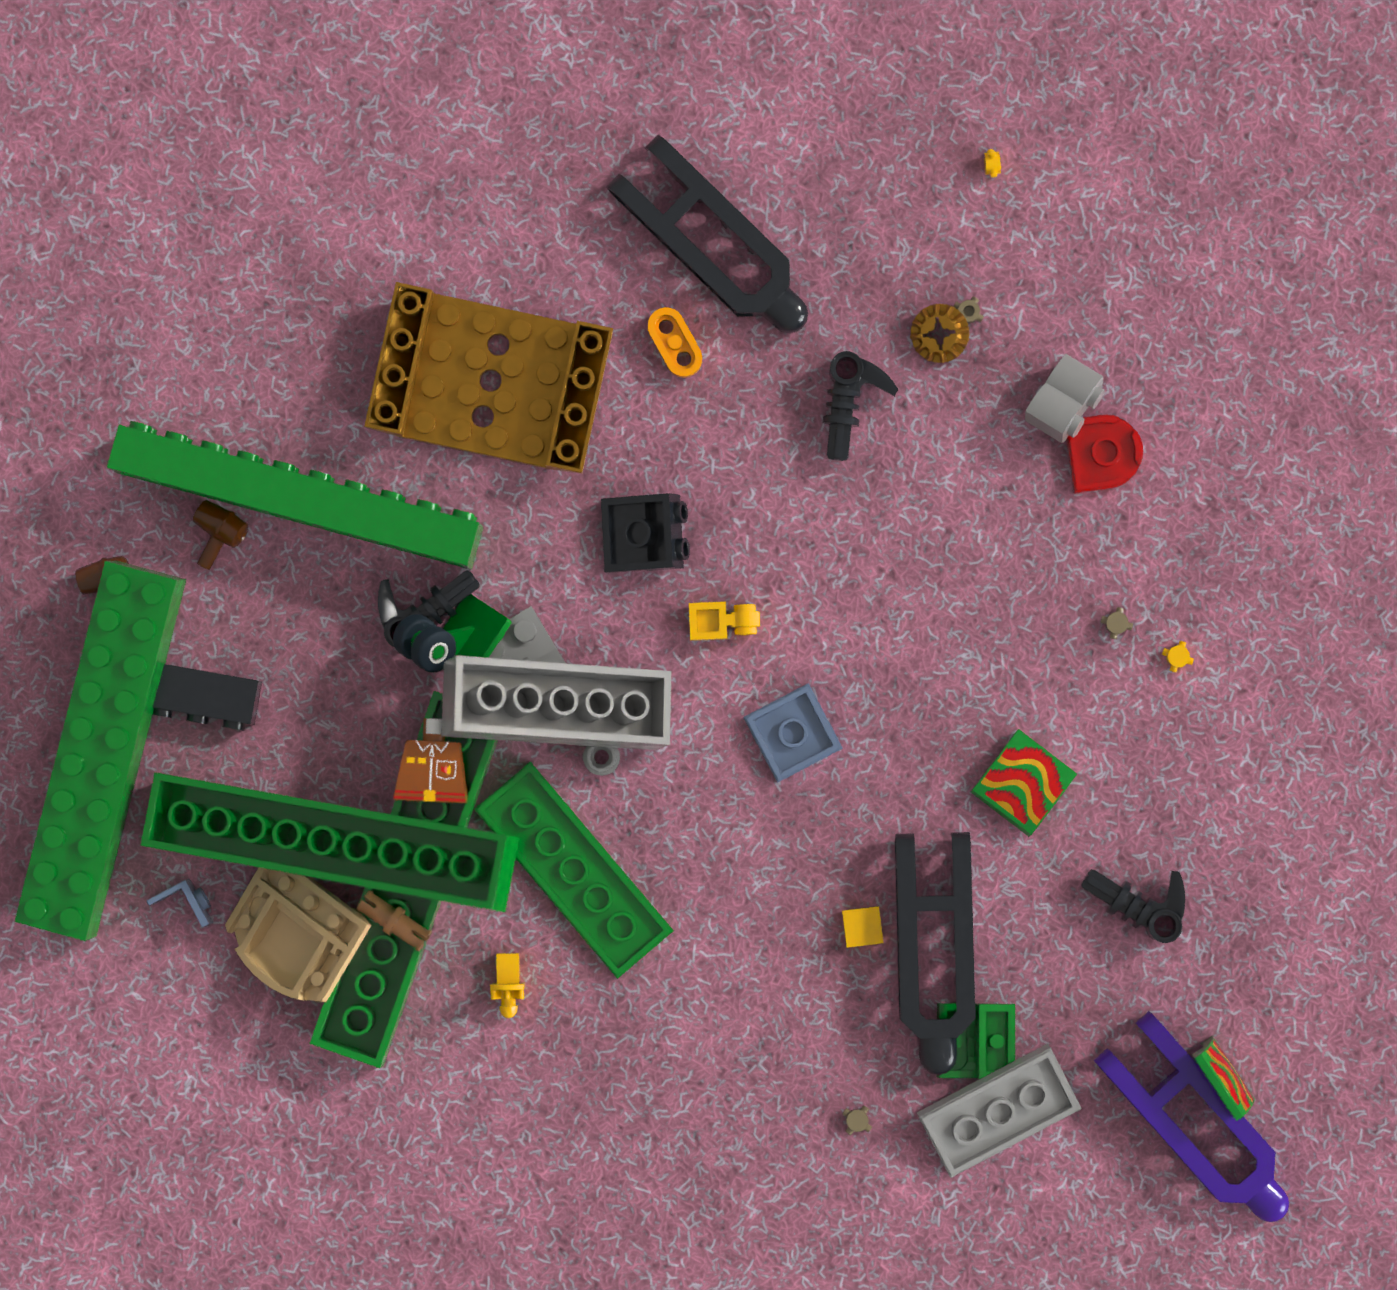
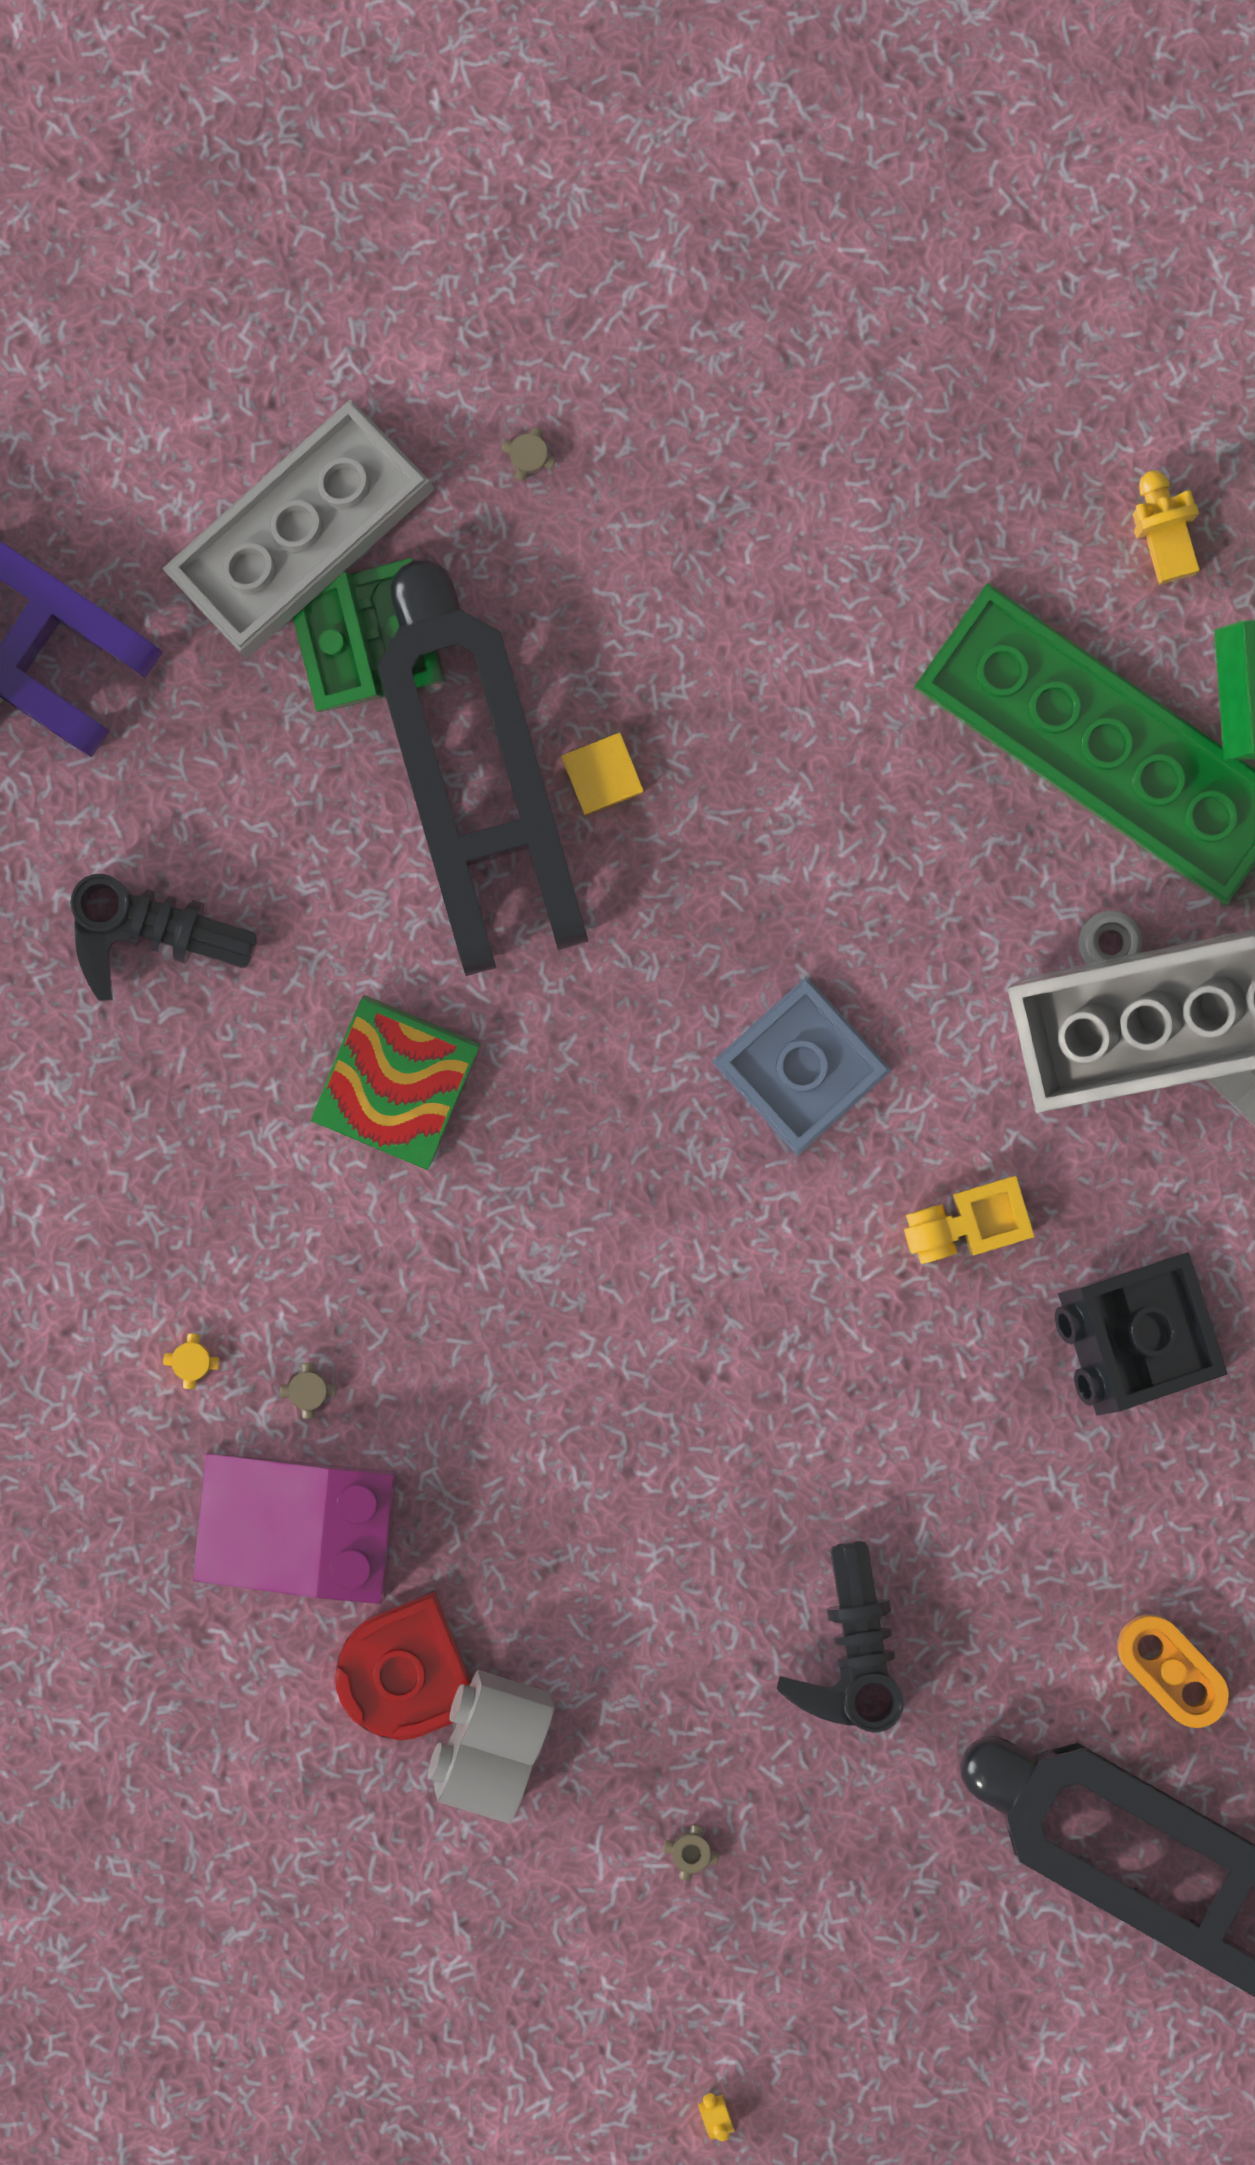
camera: 160 degrees right, 0 degrees up
(950, 319) = (720, 1832): pearl gold gear -> none
(1143, 548) = (295, 1527): none -> magenta slope

